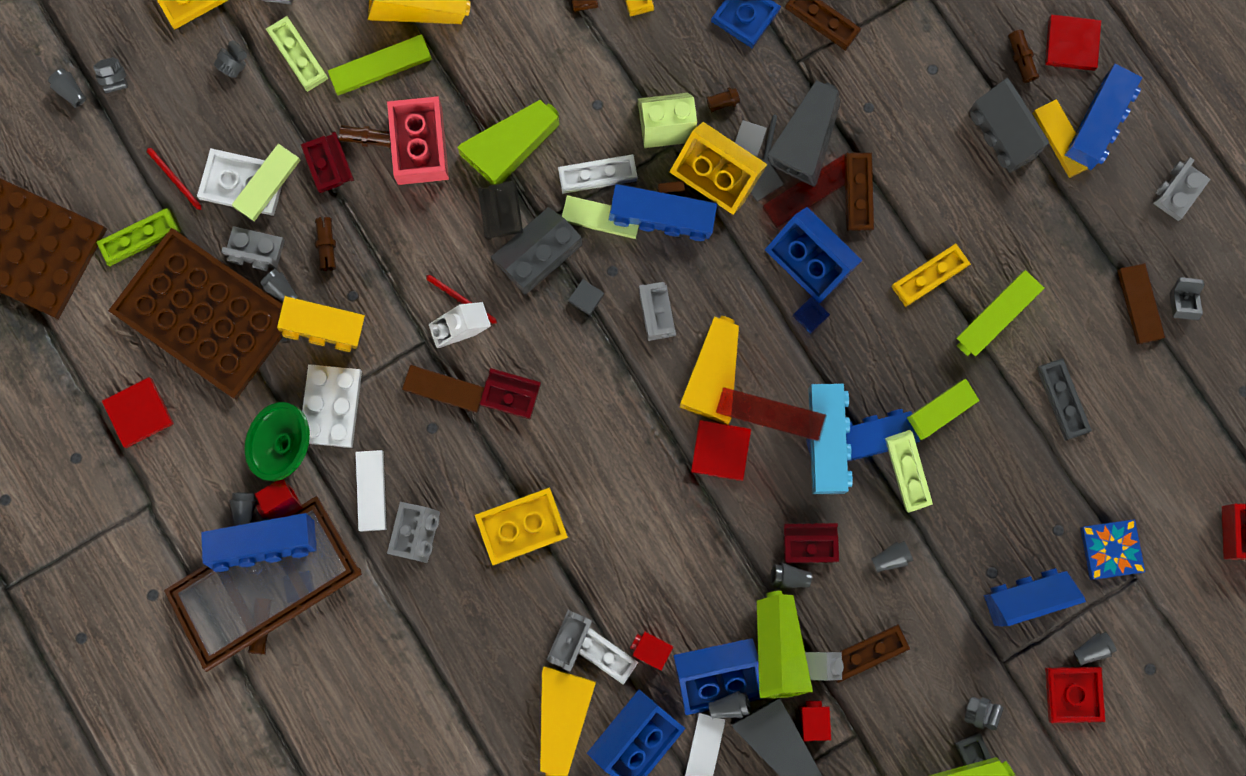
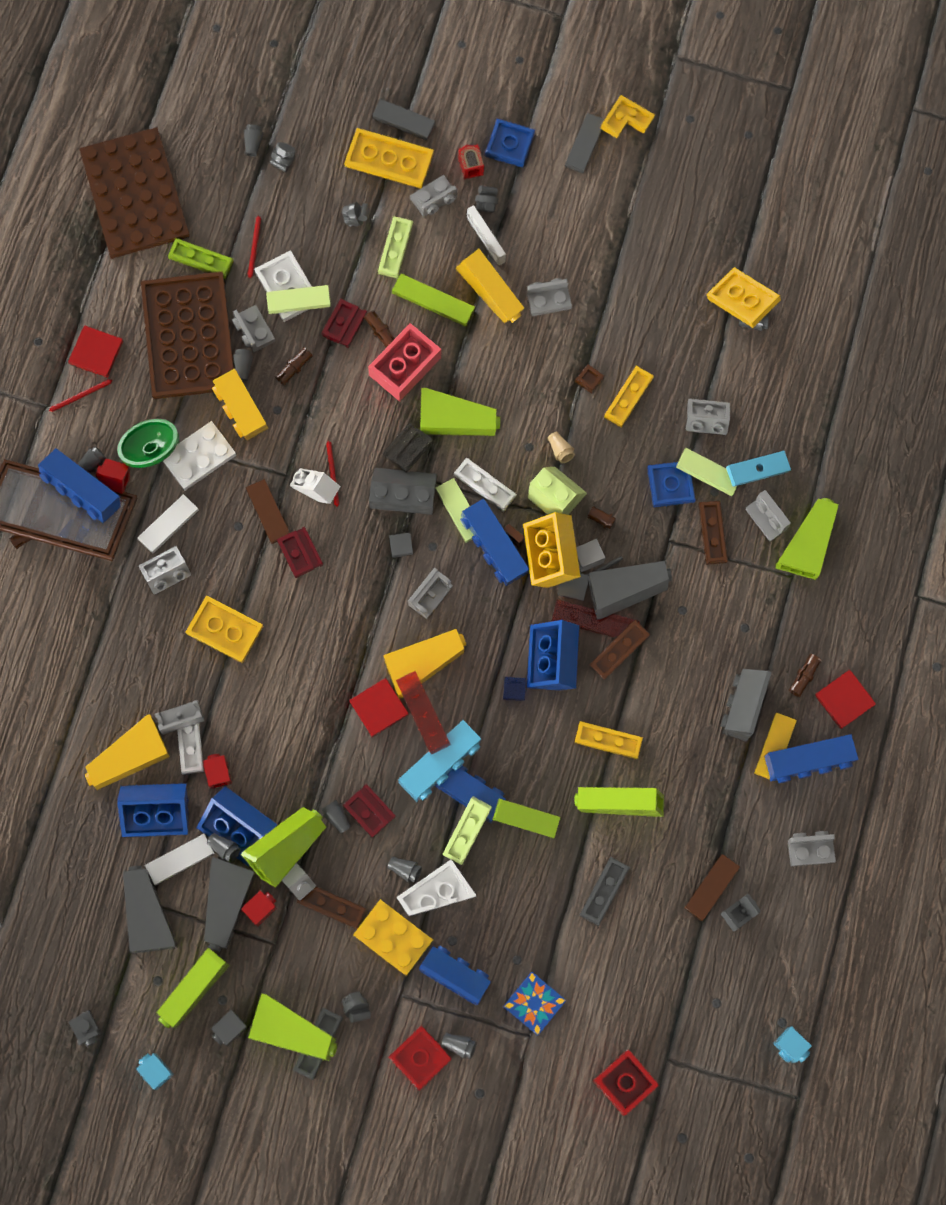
camera: 45 degrees right, 5 degrees down
(167, 465) = (80, 395): none -> red axle
(626, 77) = (562, 449): none -> tan cone
(936, 546) = (436, 890): none -> white wing
(945, 623) = (393, 937): none -> yellow plate

